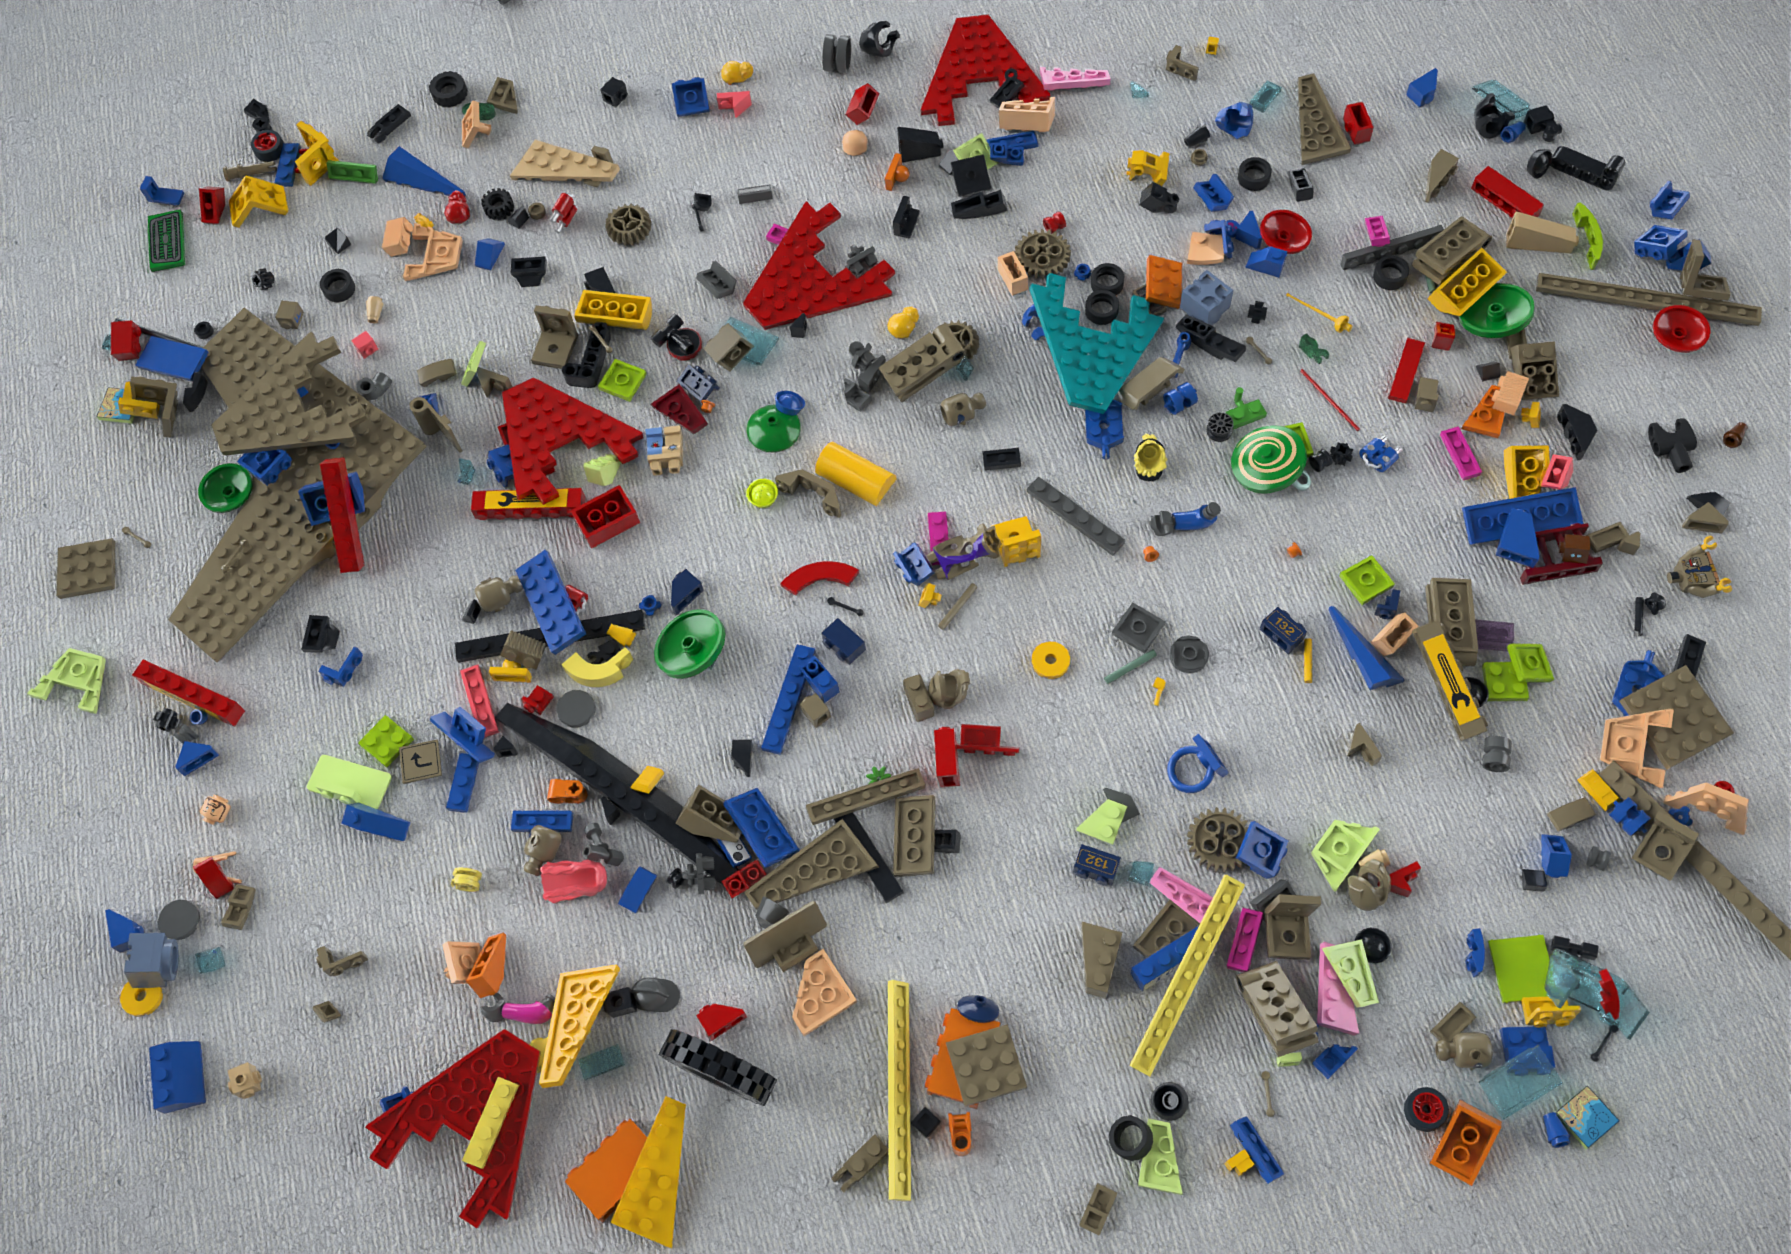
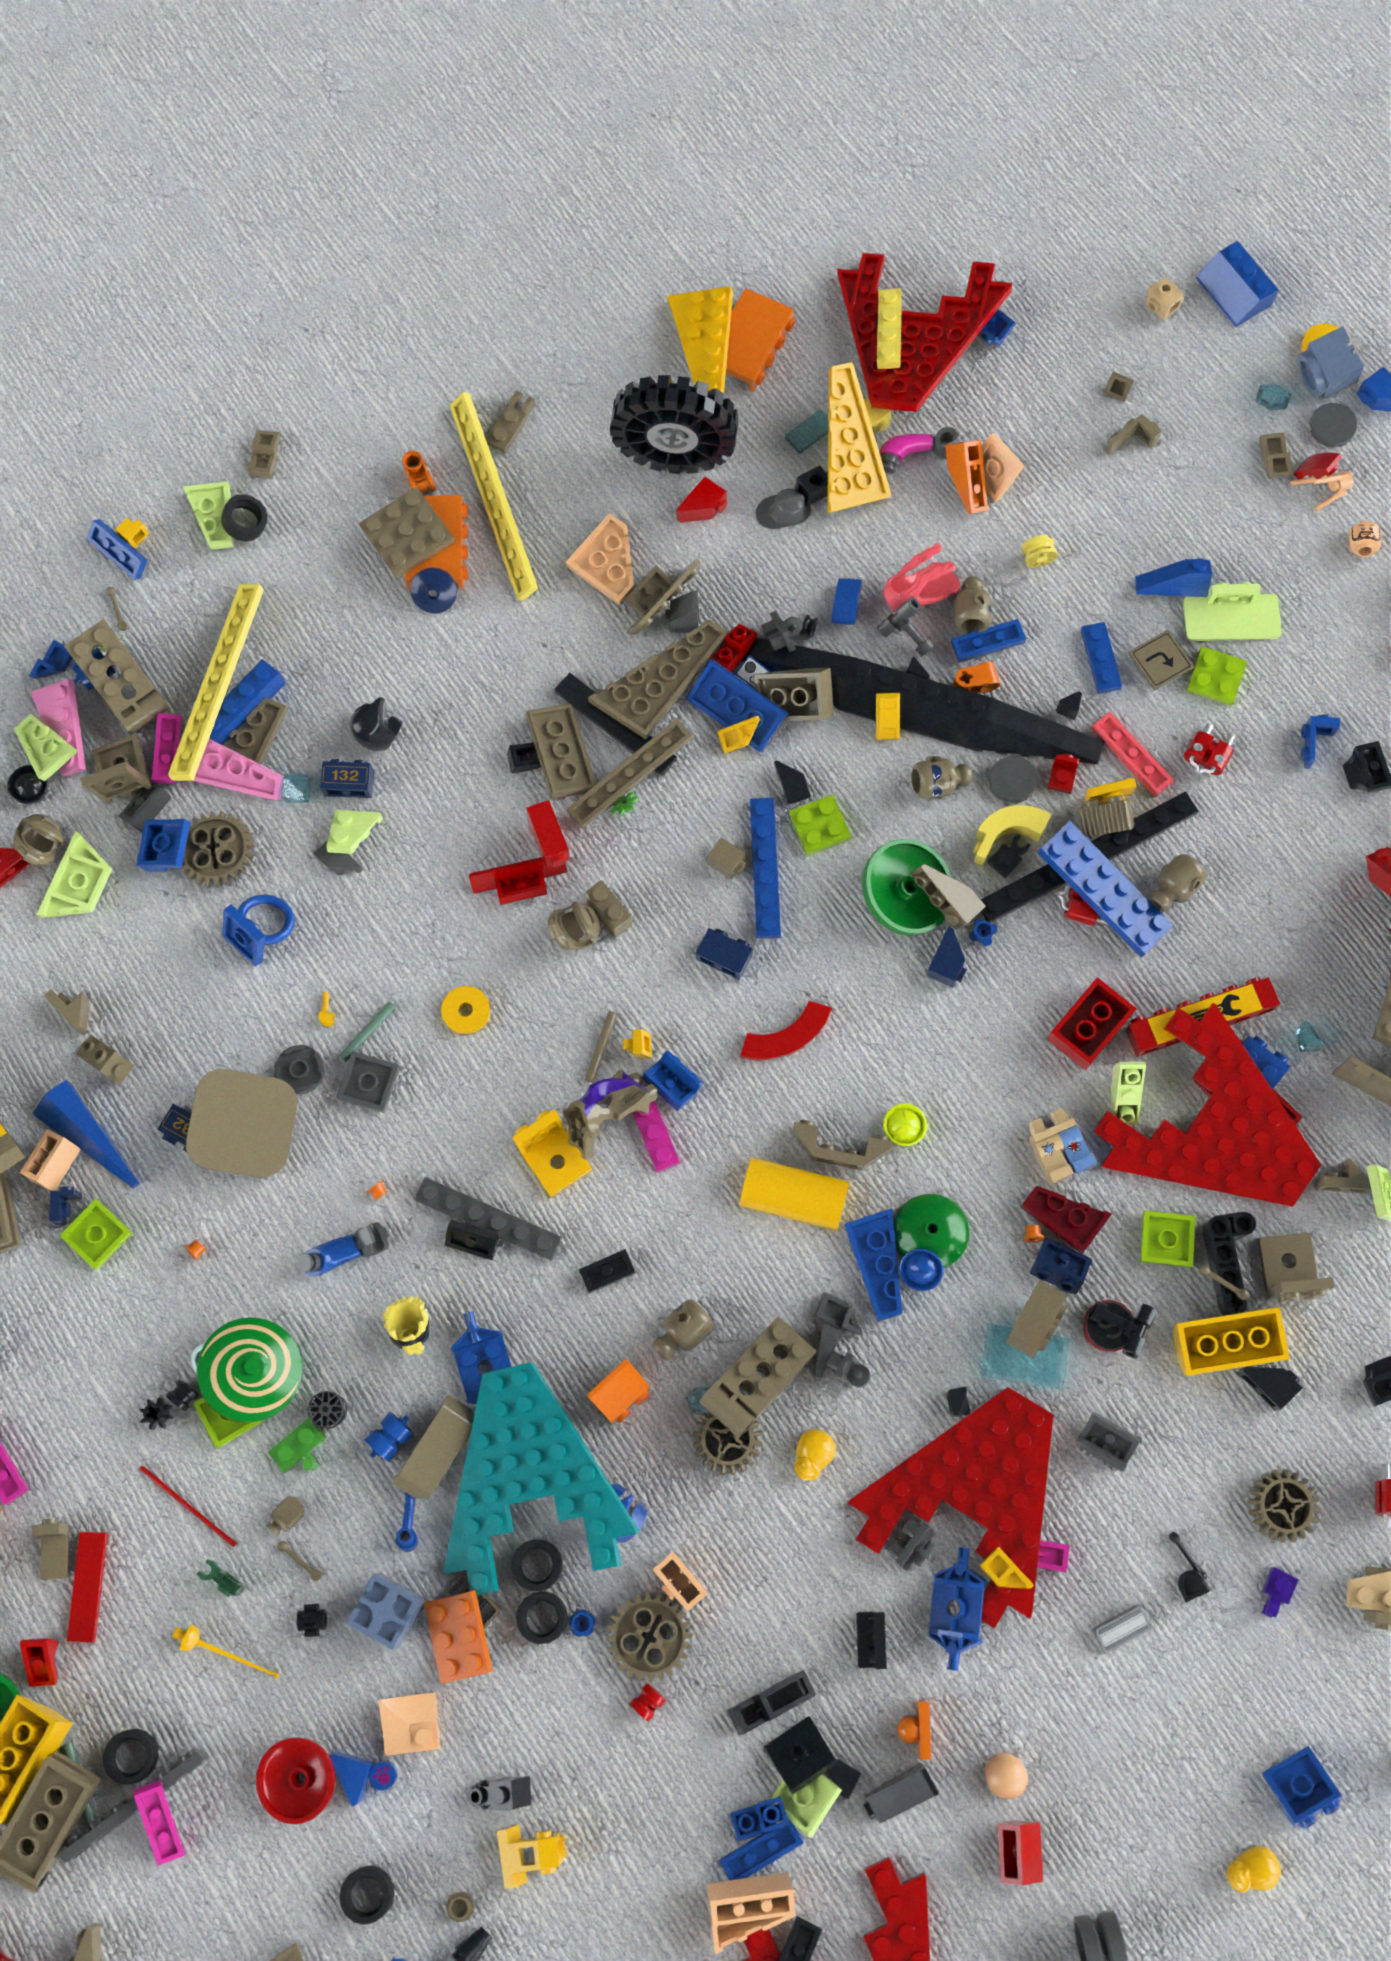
camera: 160 degrees right, 10 degrees up
(424, 681) = (1209, 753): none -> red piece
(465, 732) = (1127, 704): blue bracket -> none
(472, 612) = (1200, 852): black slope -> none
(621, 634) = (998, 878): yellow cone -> none
(630, 720) = (938, 777): none -> dark tan piece
(653, 189) = (1279, 1588): none -> dark purple plate
(659, 623) = (951, 897): none -> slope
(734, 100) = (1222, 1804): coral slope -> none
(734, 718) = (819, 825): none -> lime plate
(769, 803) = (738, 735): none -> yellow tile
(811, 225) = (1004, 1571): none -> yellow tile
(816, 420) = (876, 1257): none -> blue wing
(819, 679) = (733, 893): blue slope -> none
(831, 601) = (761, 1007): black hinge -> none
(839, 228) = (963, 1630): none -> blue plate
(925, 1122) = (457, 477): black tile -> none
(1018, 382) = (620, 1392): none -> orange slope
(1064, 894) = (368, 726): none -> black piece
(1087, 500) = (471, 1240): none -> black plate
(1099, 957) = (317, 681): dark tan wedge -> none
(1172, 1095) = (215, 569): black hat -> none
(1209, 340) = (369, 1552): black slope -> none
(1214, 193) = (420, 1832): blue bracket -> none
(1222, 227) = (399, 1761): blue bracket -> none
(1240, 615) = (241, 1123): none -> dark tan tile
(1262, 374) = (286, 1515): none -> dark tan arm
(1267, 261) = (316, 1723): blue slope -> none
(1301, 186) = (275, 1884): black slope -> none
(1308, 660) = (153, 1102): yellow piece -> none
(1343, 700) = (104, 1059): none -> dark tan bracket
(1379, 455) = (105, 1428): blue piece -> none
(1379, 855) = (38, 878): tan cone -> none

